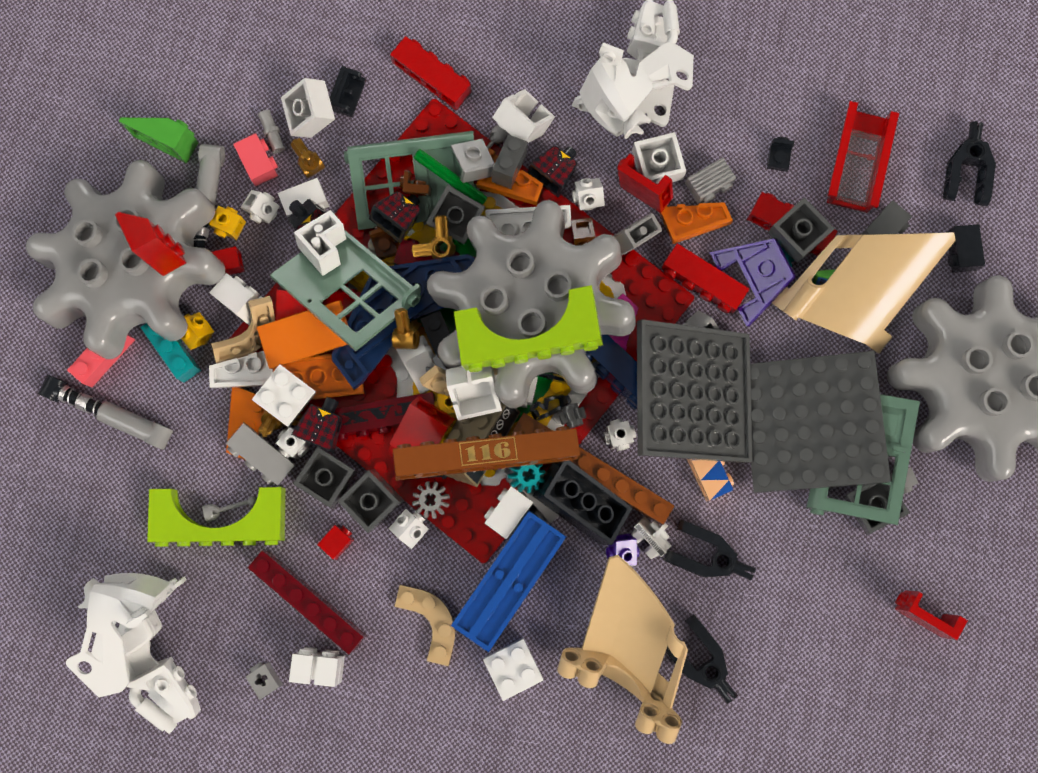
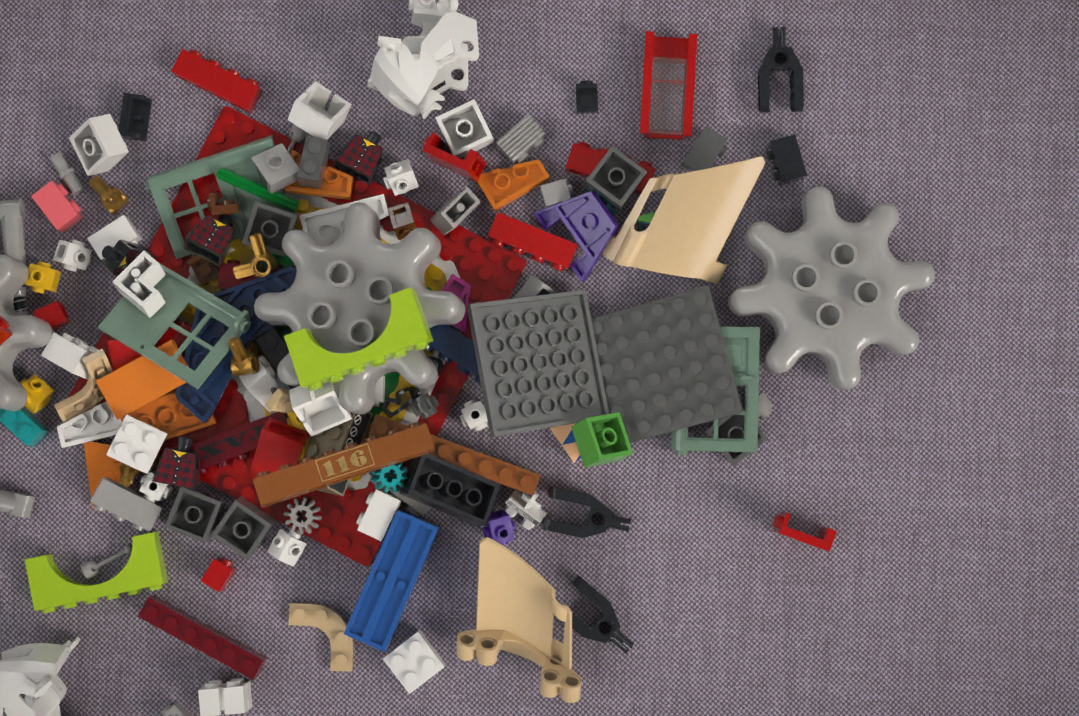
camera: 10 degrees left, 5 degrees up
(735, 236) = (556, 192): none -> light grey brick
(743, 482) = (602, 440): none -> bright green brick

